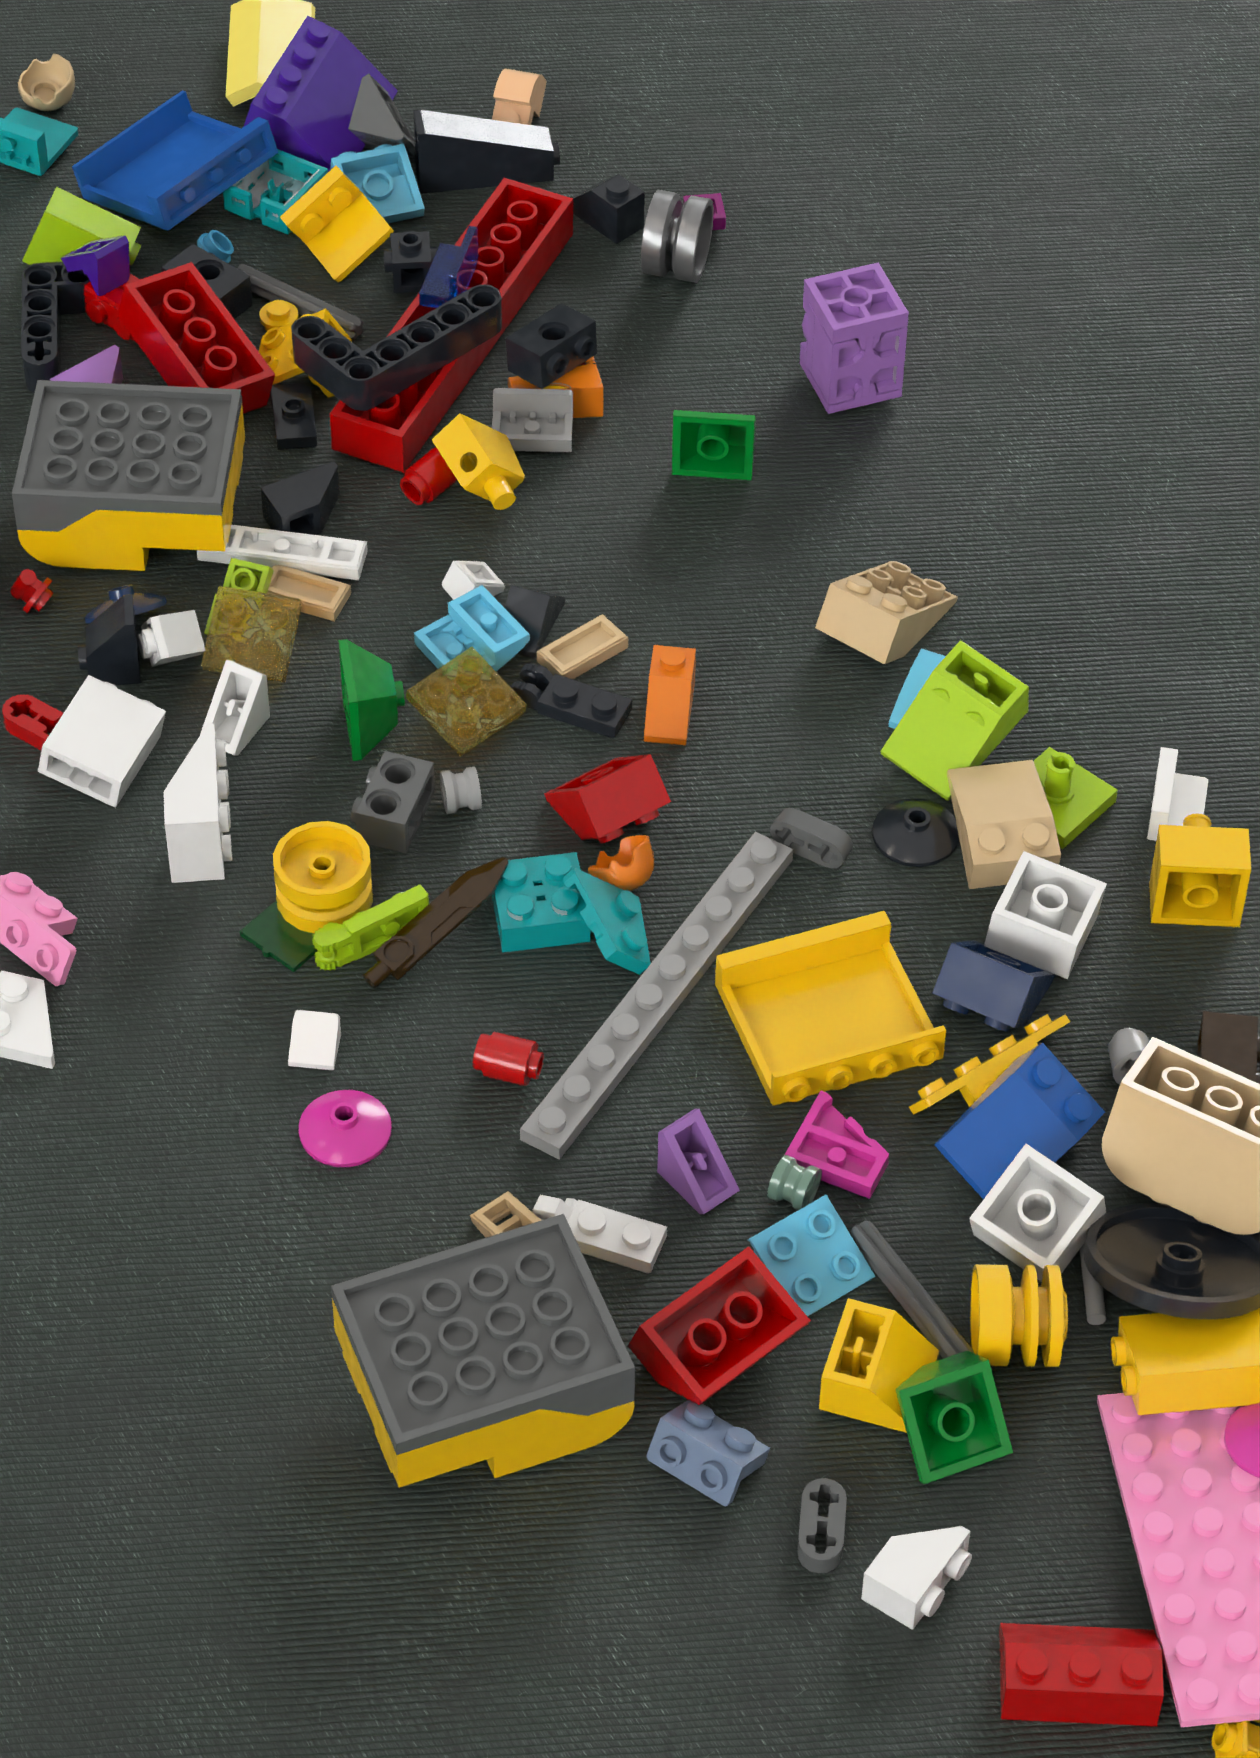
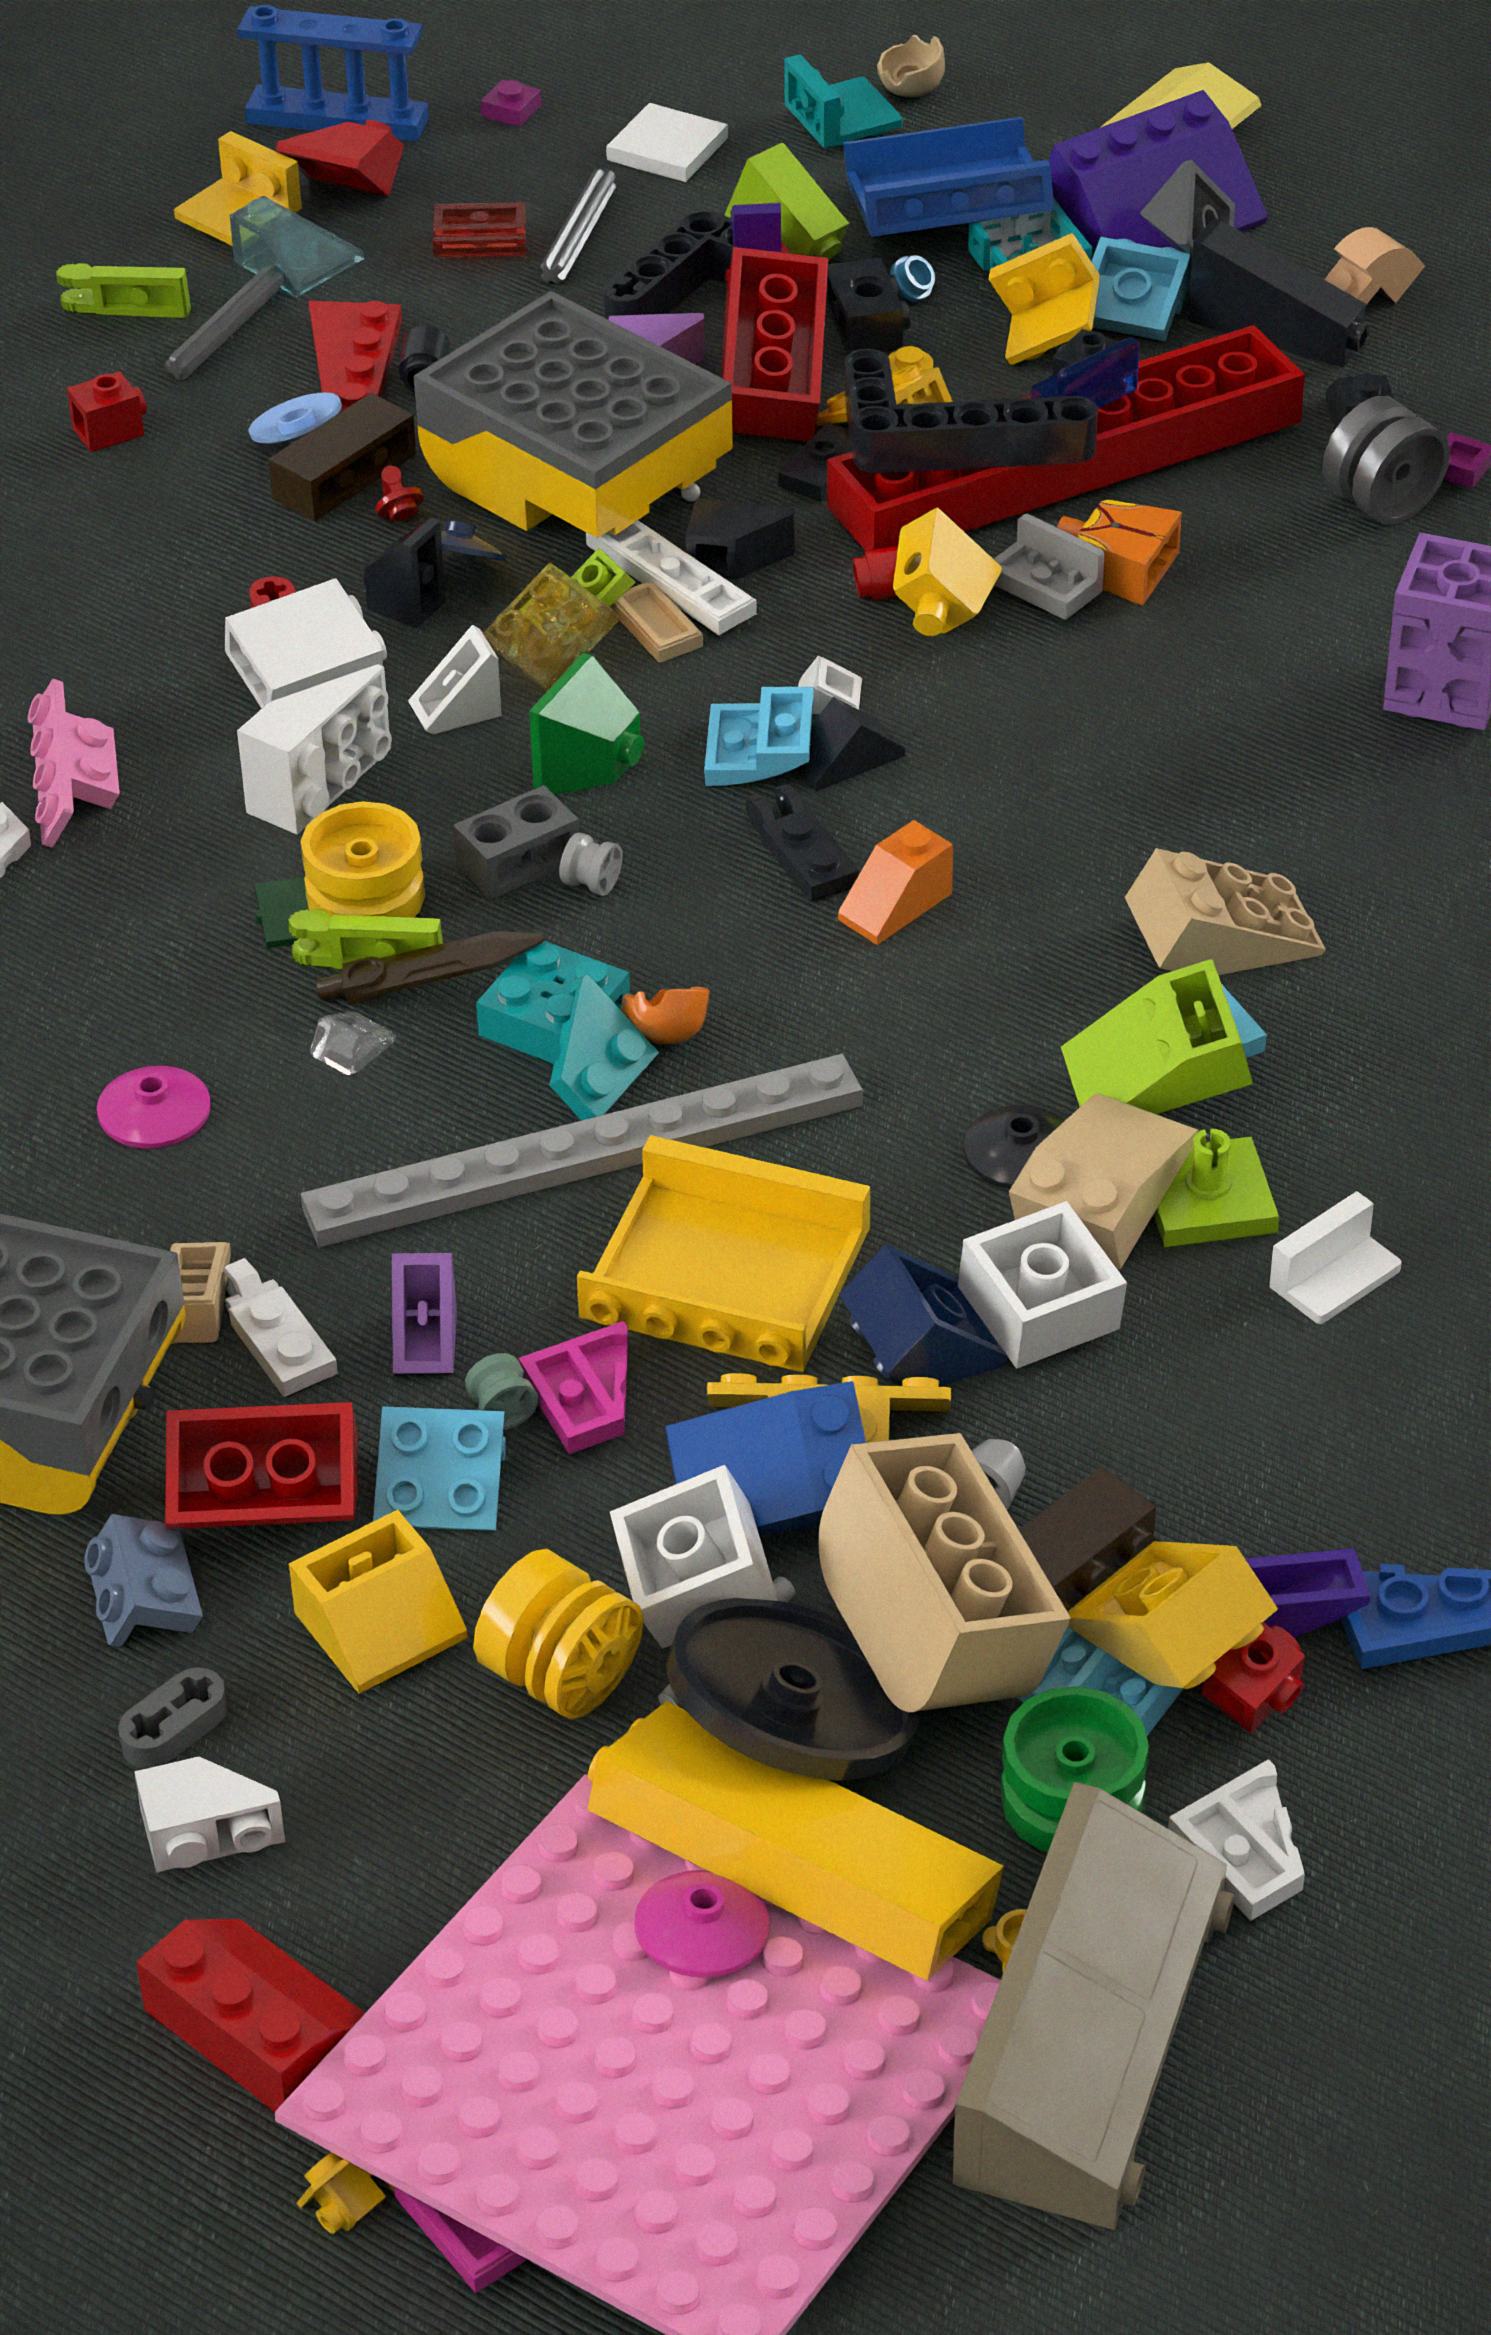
camera: 40 degrees right, 5 degrees down
(170, 638) = (460, 588): white slope -> none
(274, 289) = (933, 341): dark grey axle -> none
(314, 1040) = (207, 1011): white slope -> none
(429, 1006) = (349, 1041): none -> clear slope
(466, 701) = (689, 788): clear yellow tile -> none
(508, 1058) = (358, 1123): red brick -> none
(551, 345) = (1118, 495): black brick -> none
(583, 648) = (868, 803): tan tile -> none
(610, 797) = (727, 945): red slope -> none
(713, 444) = (1209, 673): green slope -> none
(812, 837) = (891, 1088): dark grey beam -> none
(908, 1290) = (509, 1534): dark grey axle -> none
(953, 1416) = (398, 1693): green slope -> none
(1199, 874) = (1254, 1334): yellow brick -> none

